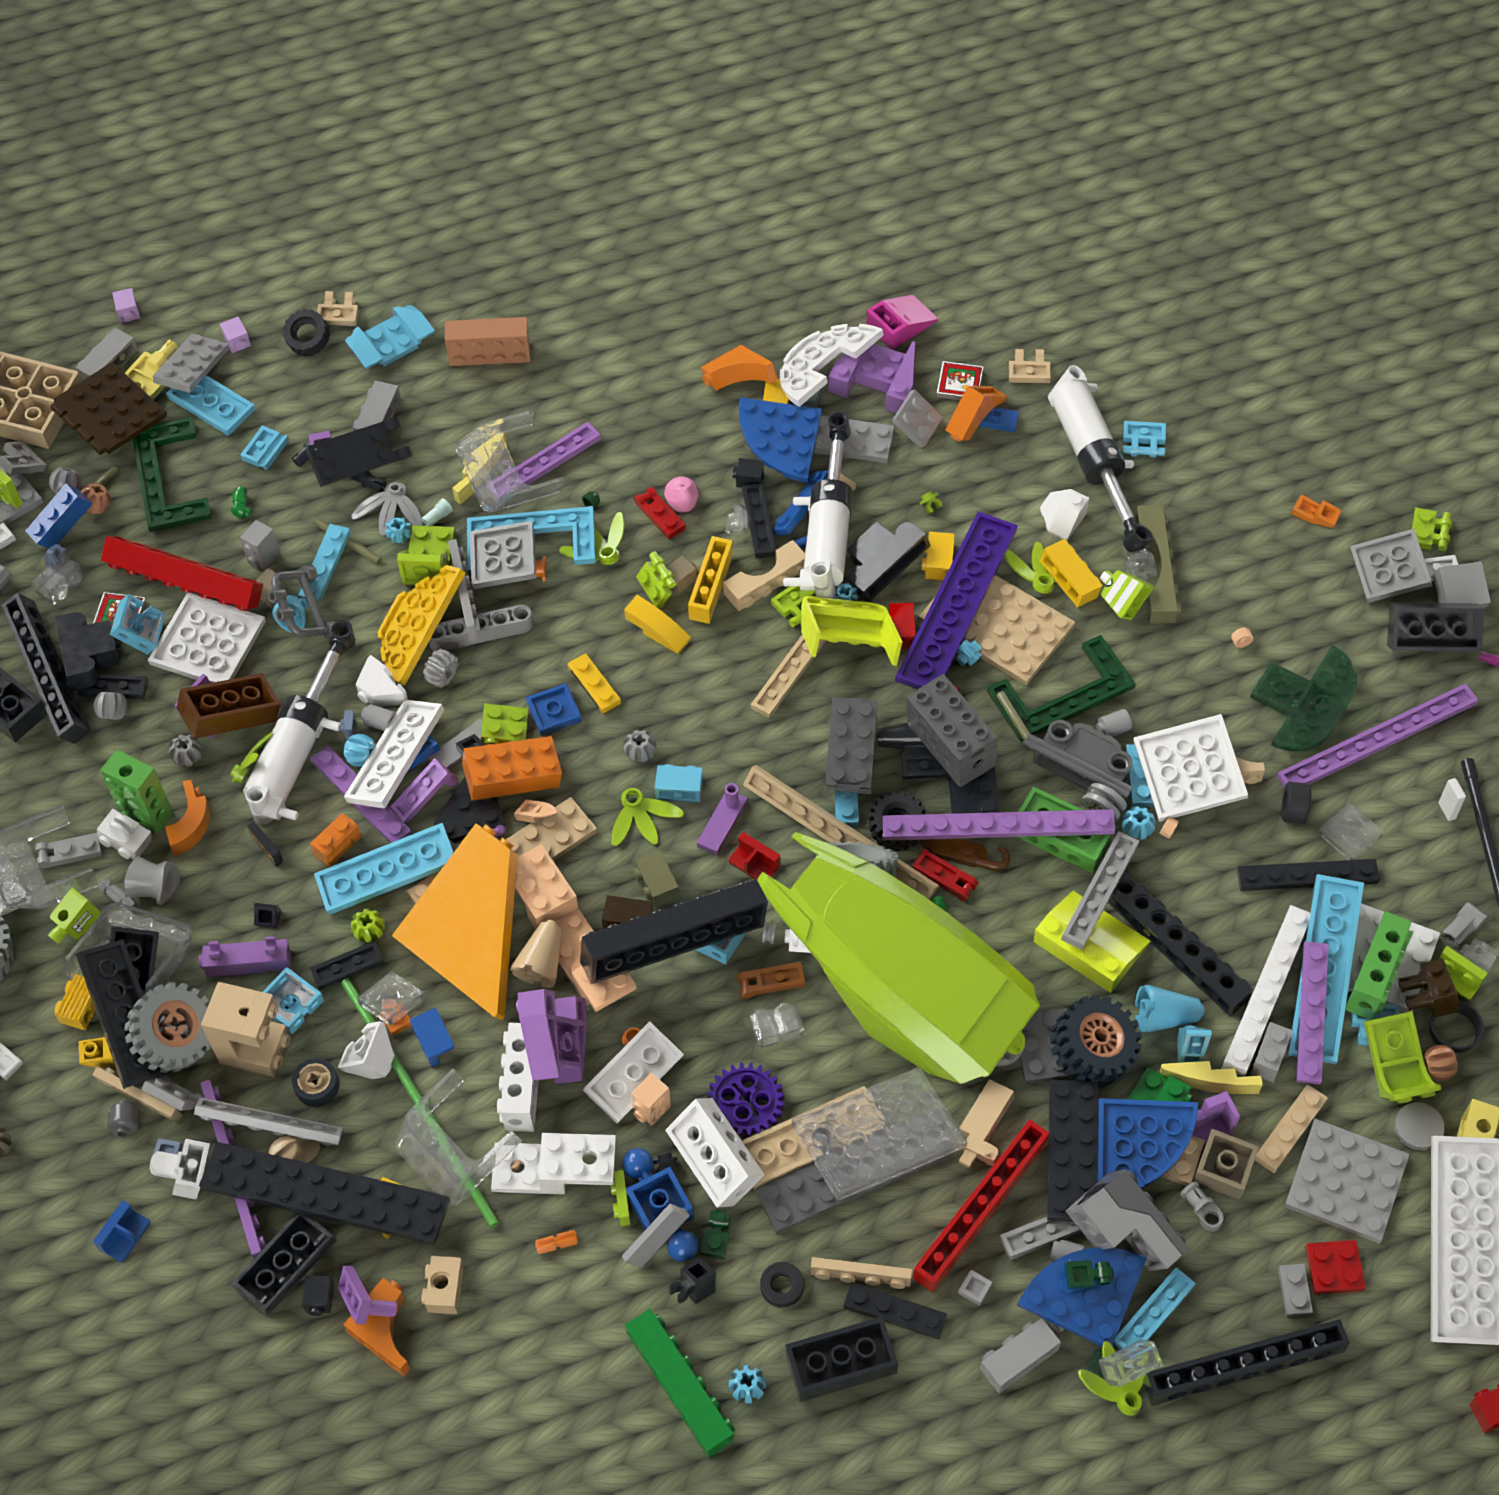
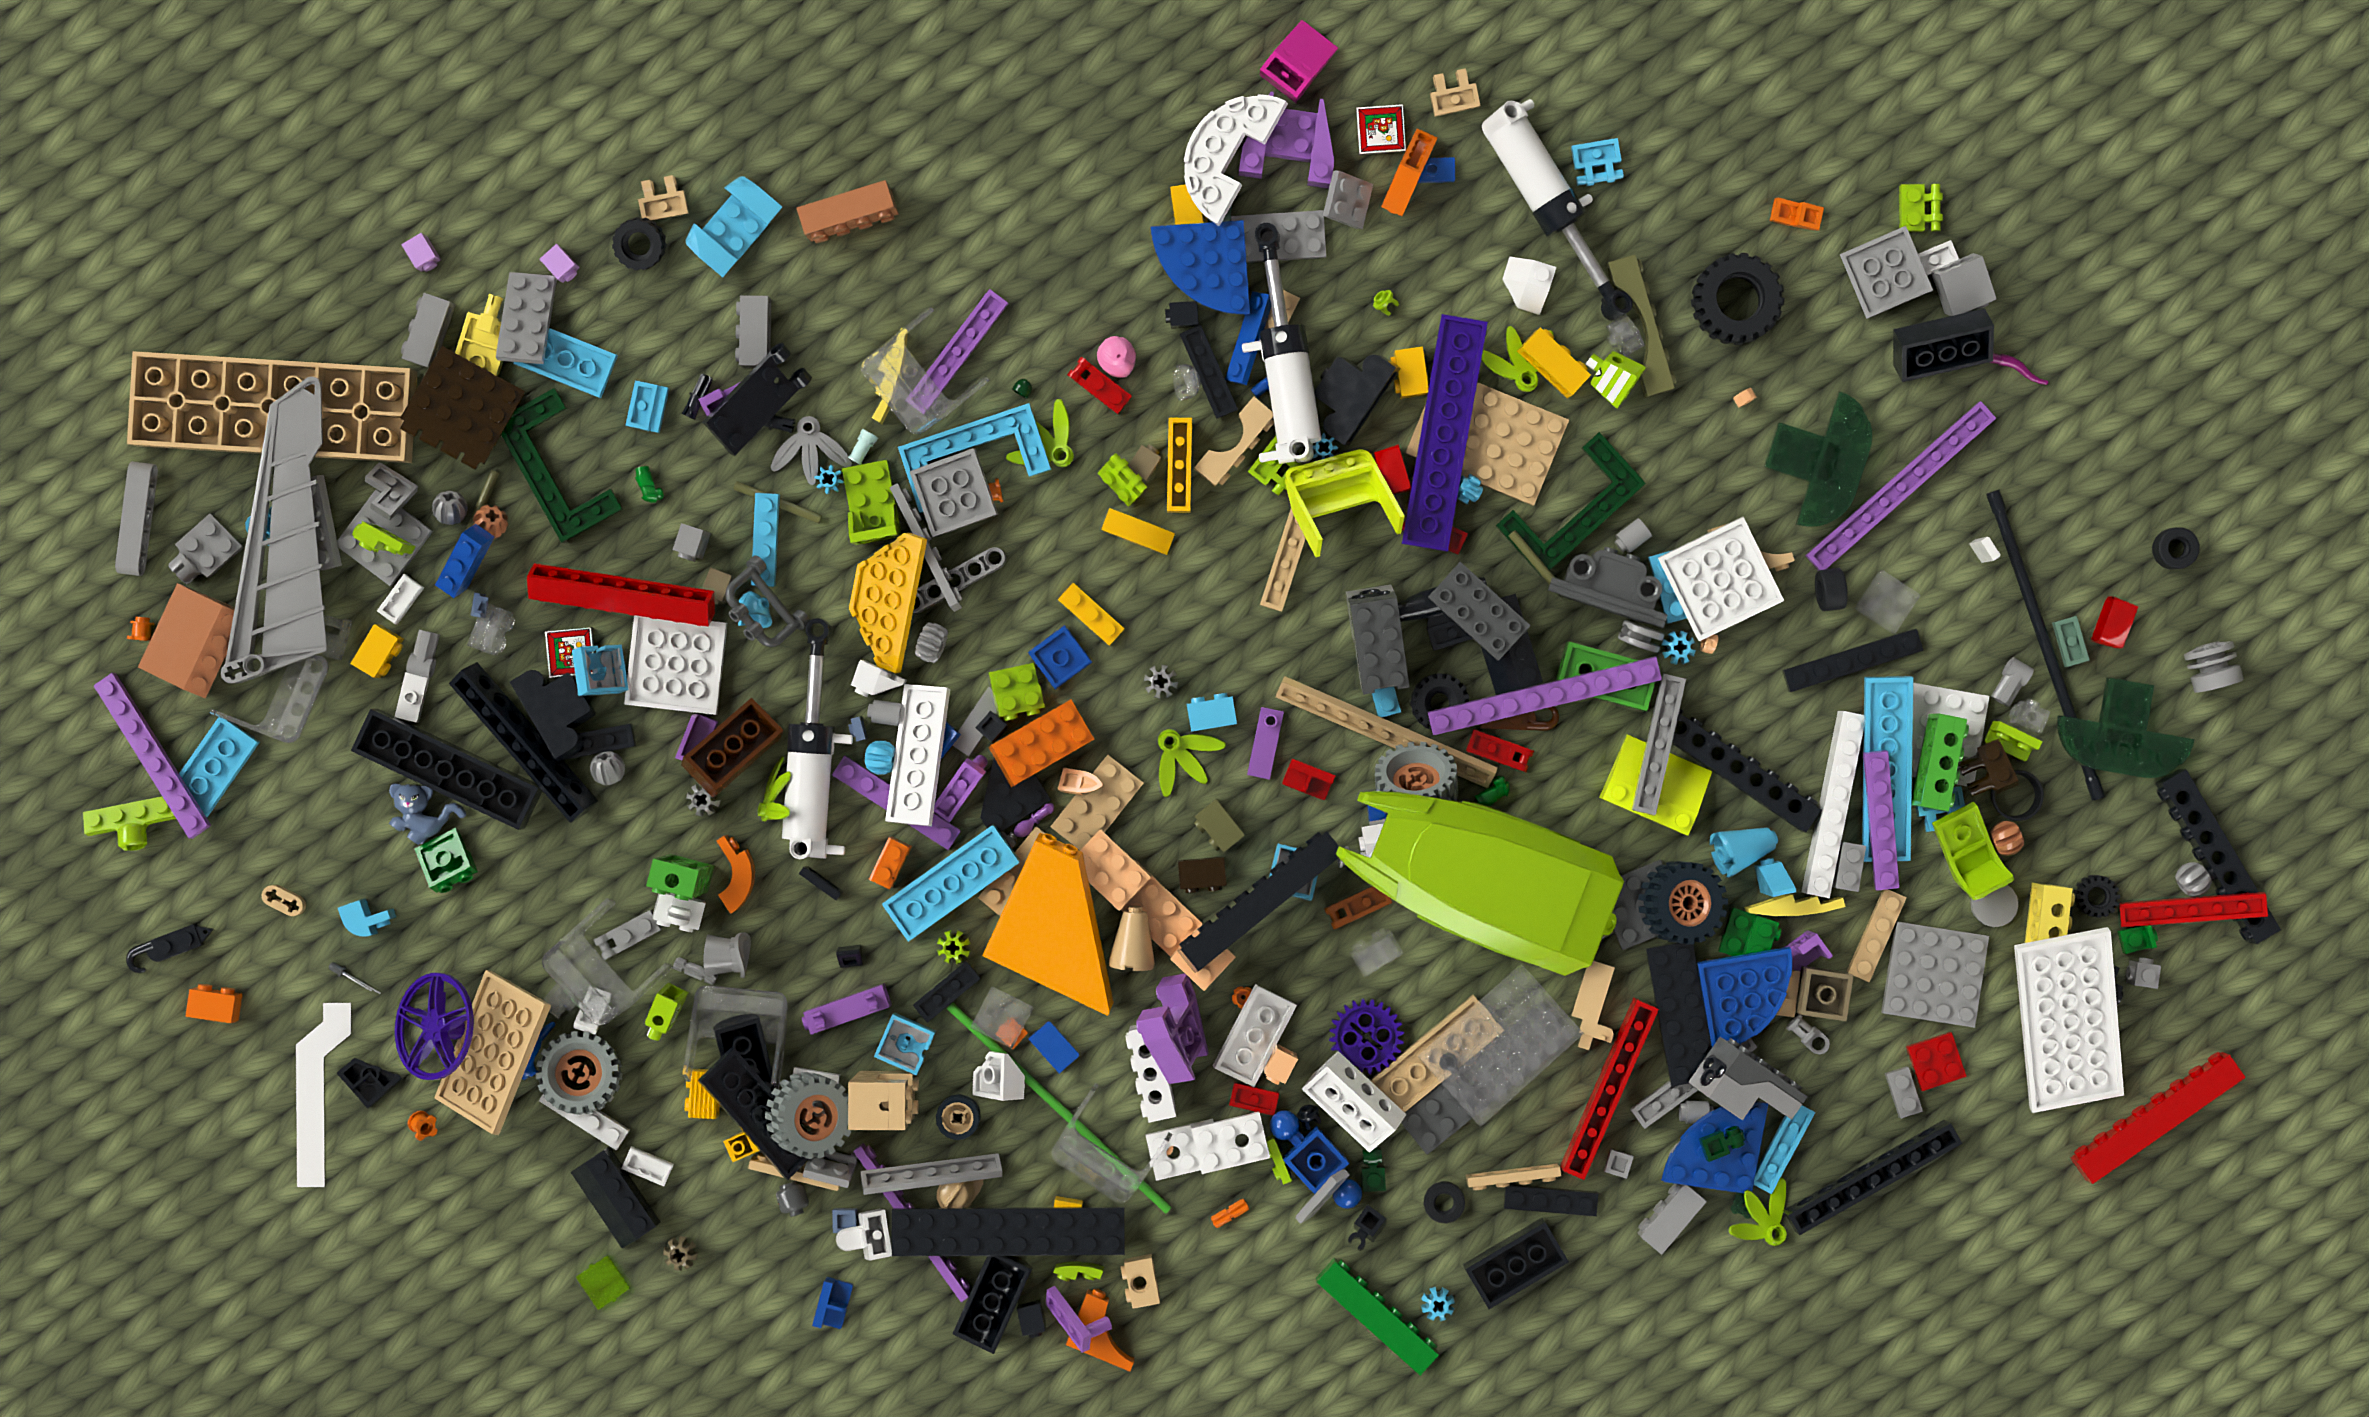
camera: 20 degrees left, 30 degrees up
(378, 1256) = (1069, 1270): none -> lime slope
(626, 1137) = (1254, 1098): none -> red plate
(737, 366) = (1132, 176): orange arch -> none
(1130, 1363) = (1772, 1209): clear brick -> none
(1253, 535) = (1763, 281): none -> black tyre

